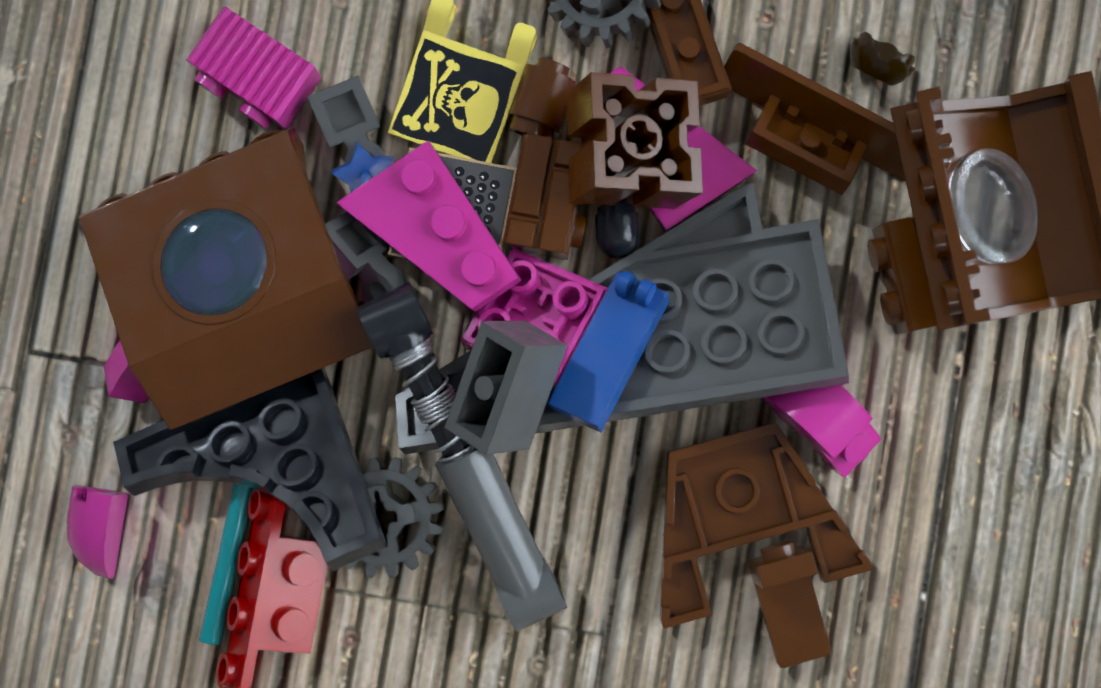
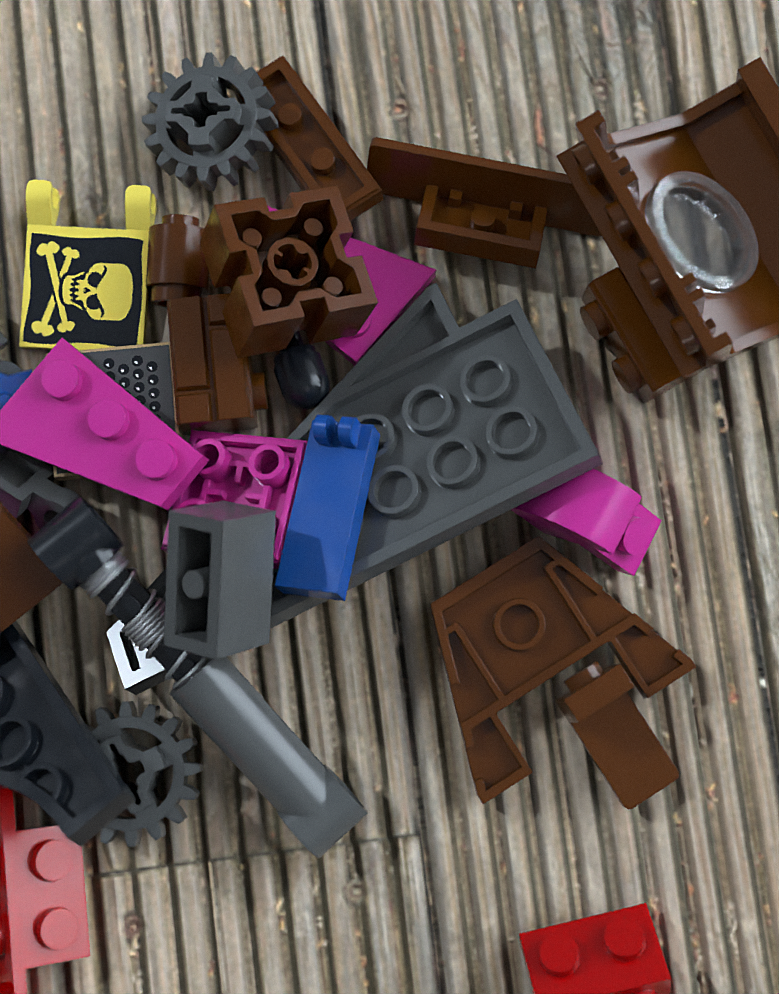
camera: 15 degrees left, 5 degrees down
(880, 59) = (533, 114): dark brown plate -> none

